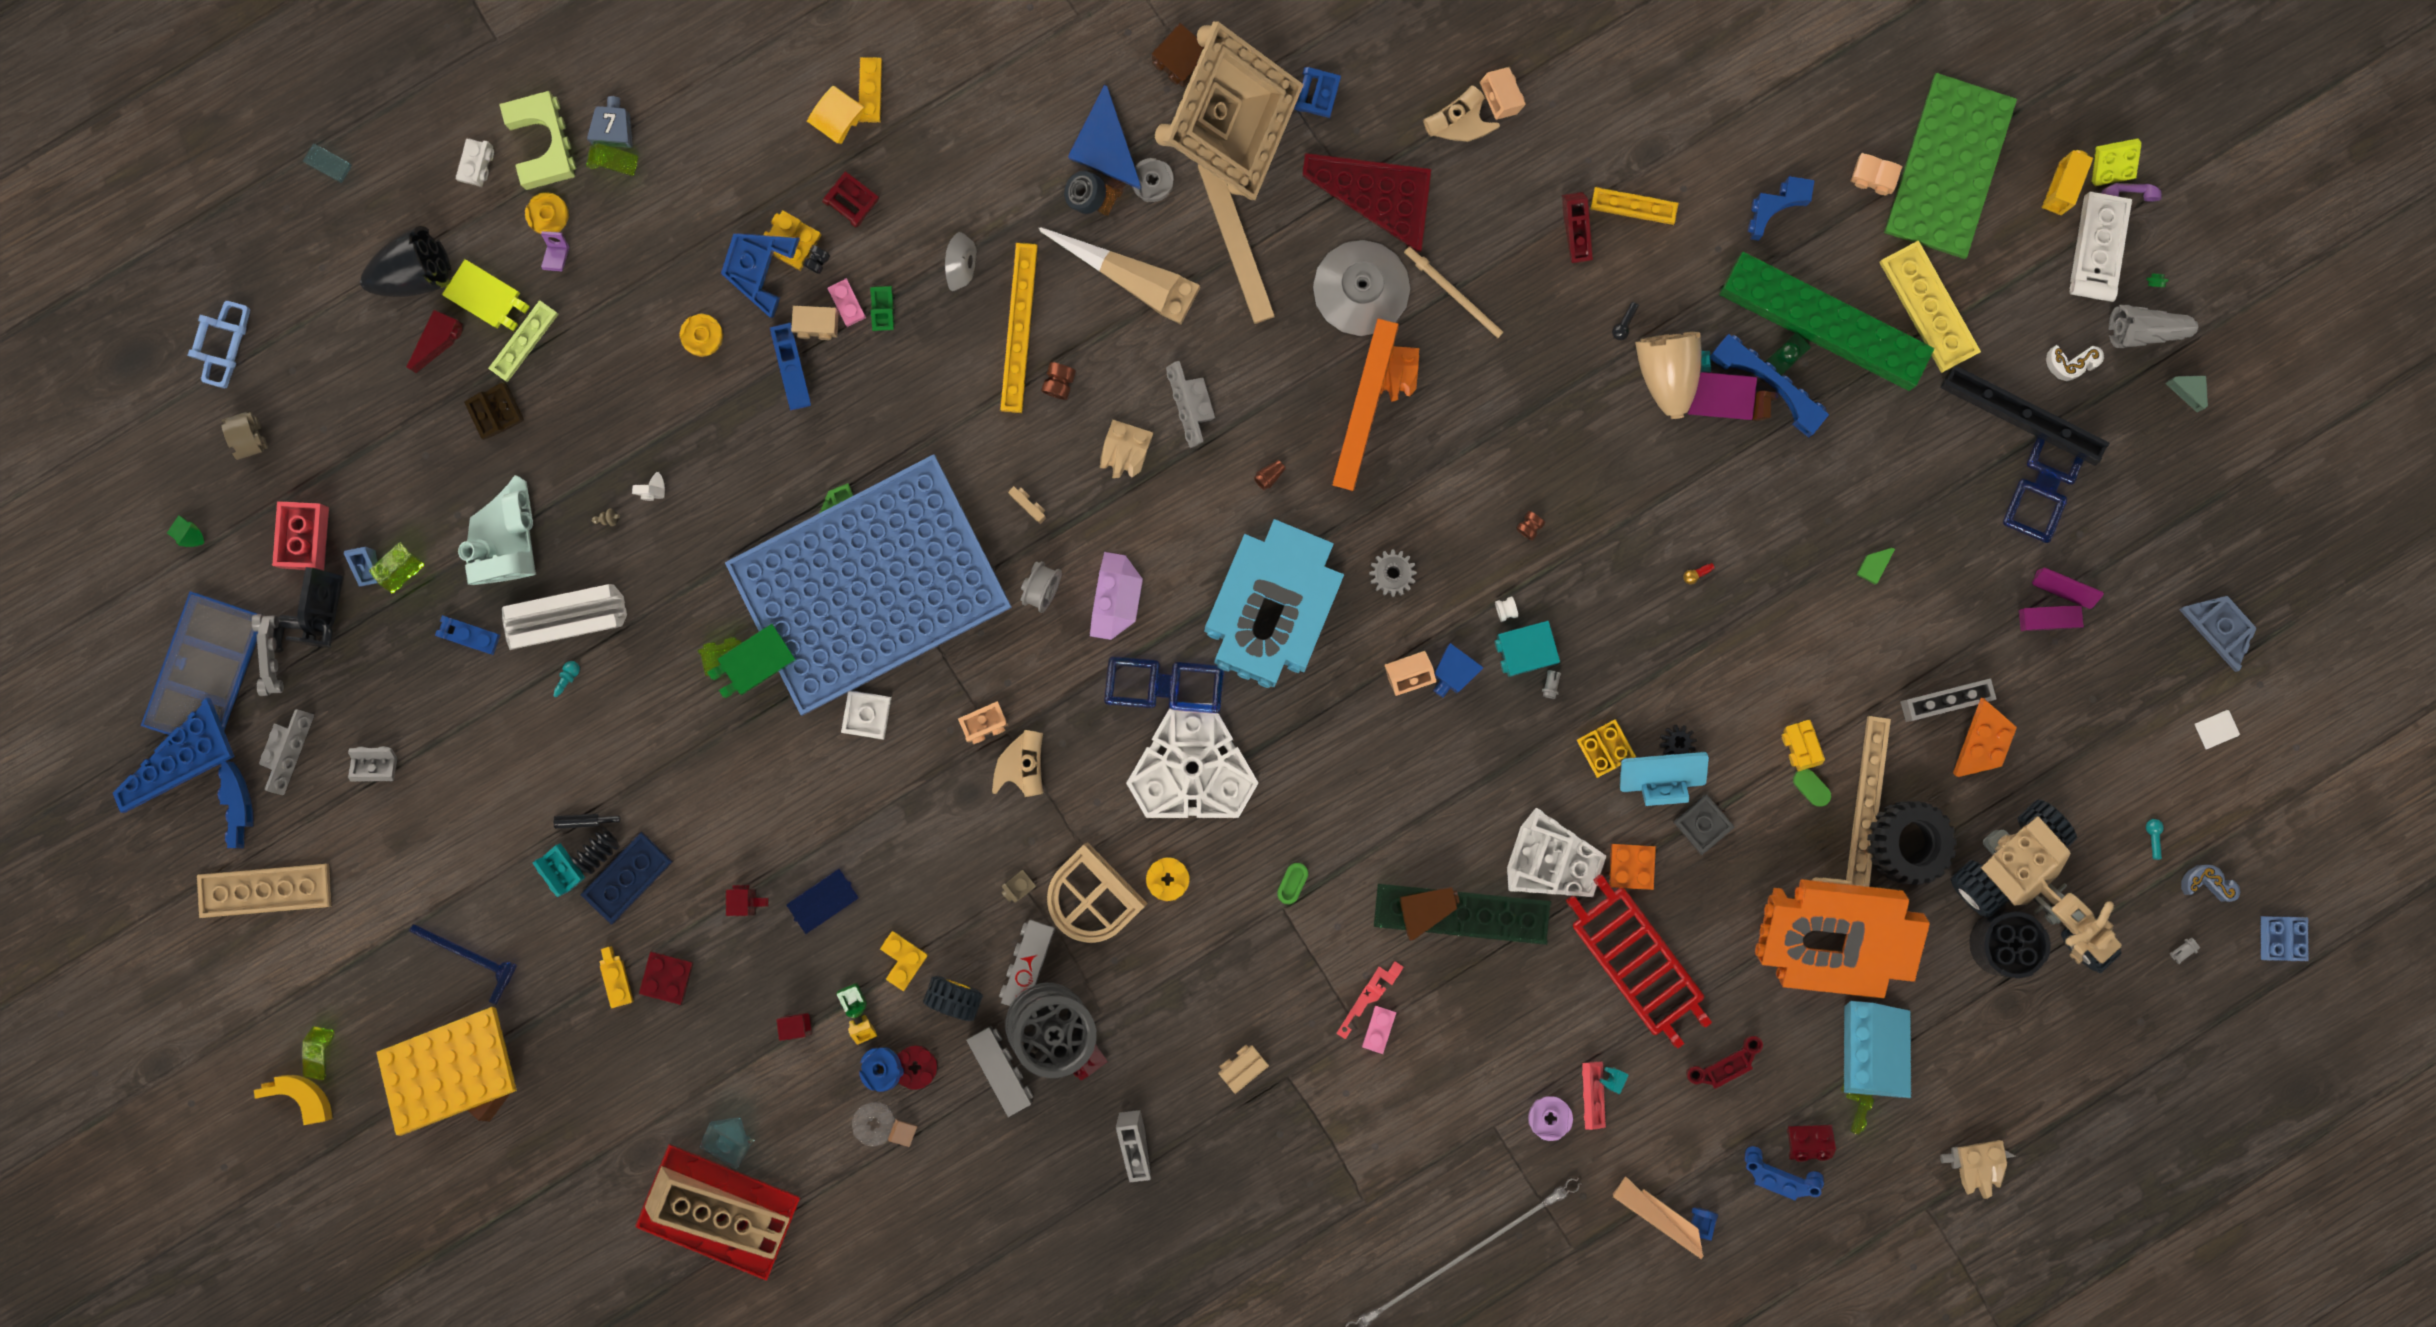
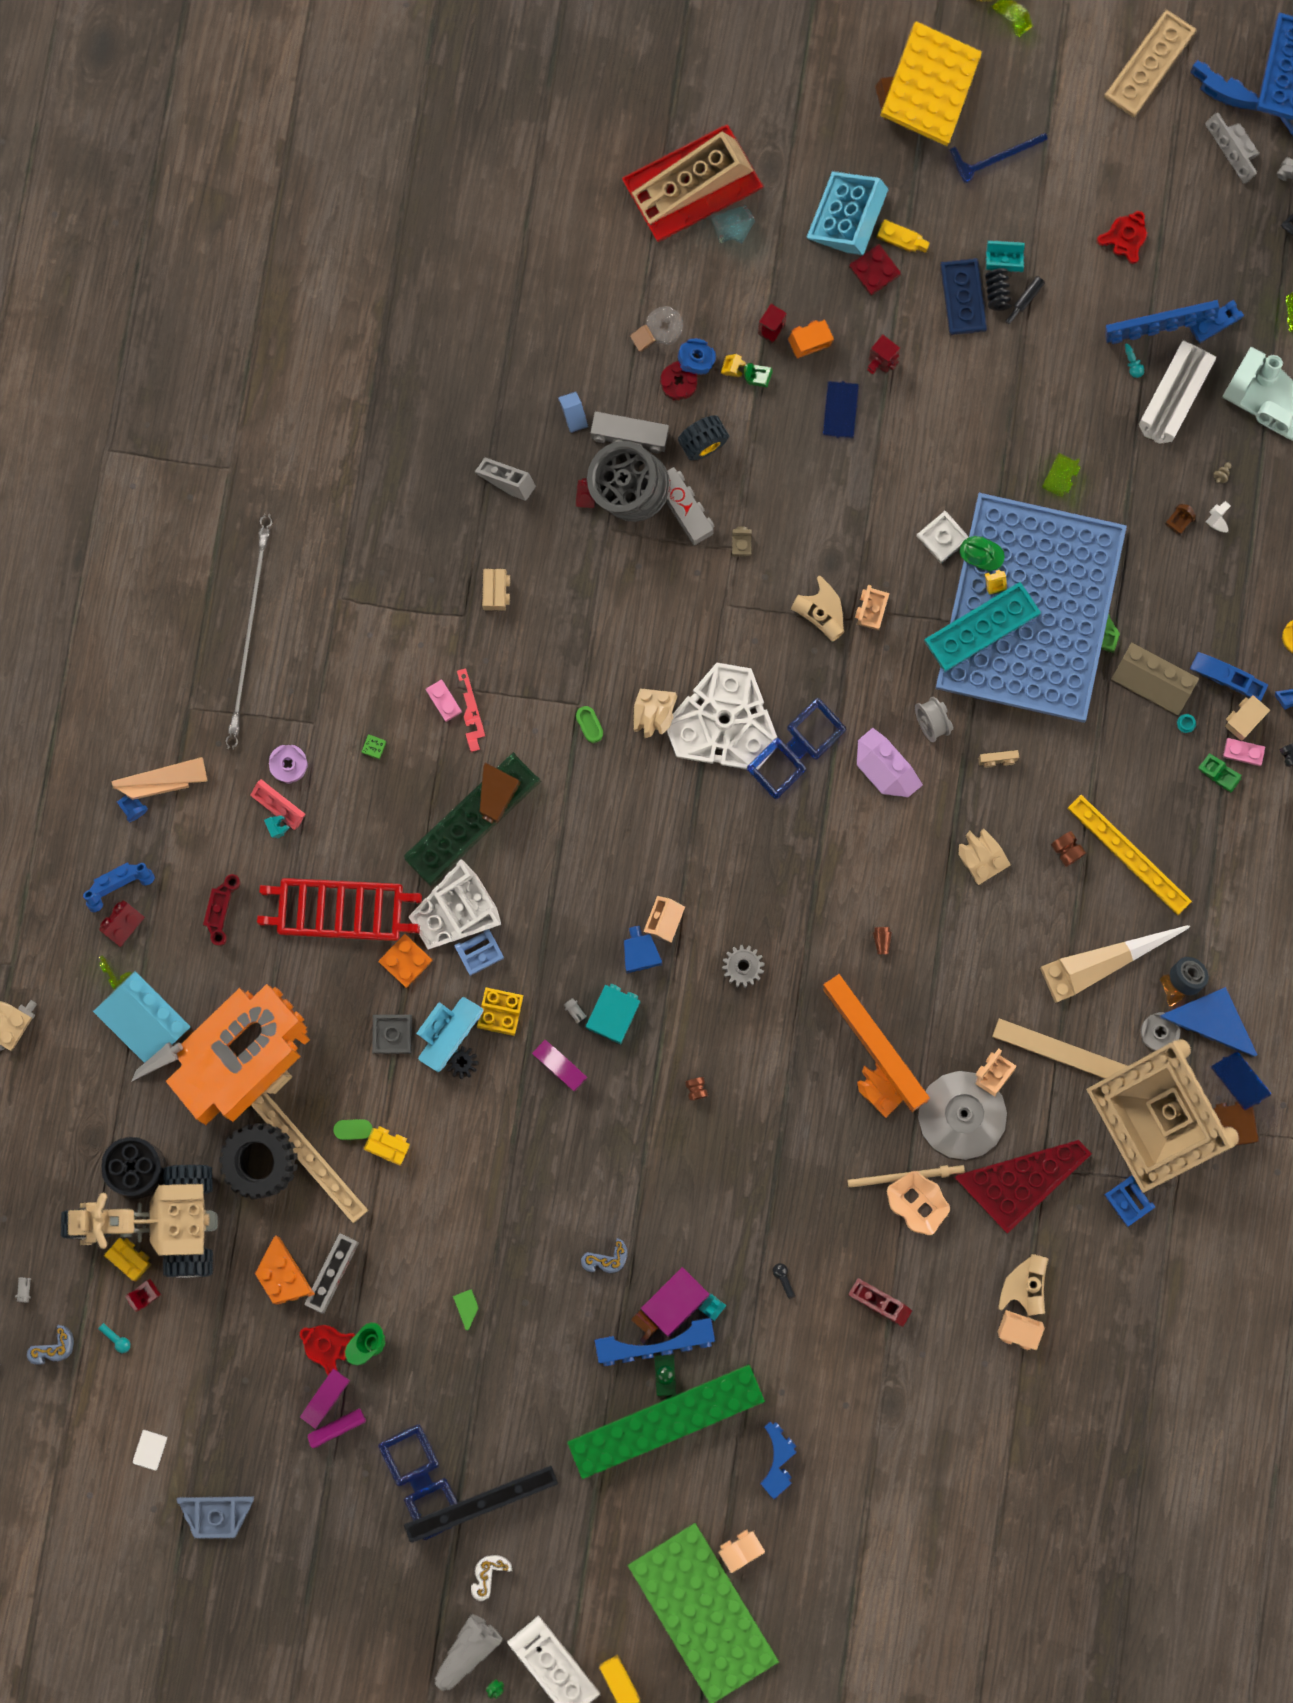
camera: 130 degrees right, 5 degrees down
(372, 764) = (1178, 193): light grey bracket -> none
(450, 778) = (1126, 235): none -> red tile
(503, 673) = (1162, 321): none -> blue plate
(631, 1046) = (848, 212): none -> medium azure slope
(678, 522) = (1181, 518): none -> reddish brown tile
(753, 661) = (1041, 489): green tile -> none
(780, 981) = (810, 338): none -> orange brick
(844, 428) = (1154, 679): none -> dark tan slope
(854, 666) = (982, 553): none -> green piece
(861, 371) = (1186, 723): none -> teal plate
(872, 630) = (996, 582): none -> yellow tile
(908, 959) = (755, 434): yellow plate -> none
(923, 609) = (982, 626): none -> teal plate
(956, 267) = (1218, 859): light grey piece -> none
(1022, 1138) = (573, 412): none -> medium blue slope
(1110, 879) = (693, 606): tan window -> none
(1139, 79) = (1241, 1080): none -> clear blue piece
(1157, 886) = (652, 644): yellow plate -> none
(1191, 401) = (978, 929): light grey bracket -> none
(1235, 835) = (653, 711): none -> tan plate
(1287, 571) = (803, 893): medium azure panel -> none
(1305, 285) = (995, 1073): none -> light nougat bracket
(1471, 1055) = (374, 746): none -> bright green tile
(1481, 265) = (928, 1192): none -> light nougat piece
(1506, 609) = (652, 1023): white wheel -> none
(1575, 803) = (482, 957): none -> medium blue plate
(1609, 657) = (559, 1065): none -> magenta slope
(1634, 206) = (862, 1358): yellow tile -> none
(1671, 370) = (724, 1279): tan cylinder -> none
(1692, 576) = (567, 1171): piece -> none
(1740, 479) = (606, 1263): none -> sand blue animal
(1895, 1002) = (161, 1058): none -> light grey bar
(1930, 306) = (614, 1506): light yellow plate -> none
(1981, 621) = (365, 1344): none -> green piece
(2007, 655) = (325, 1345): none -> red tile
(2084, 882) = (128, 1259): none -> yellow brick
(2103, 844) = (143, 1295): none -> dark red bracket
(2191, 389) = (397, 1643): sand green slope -> none

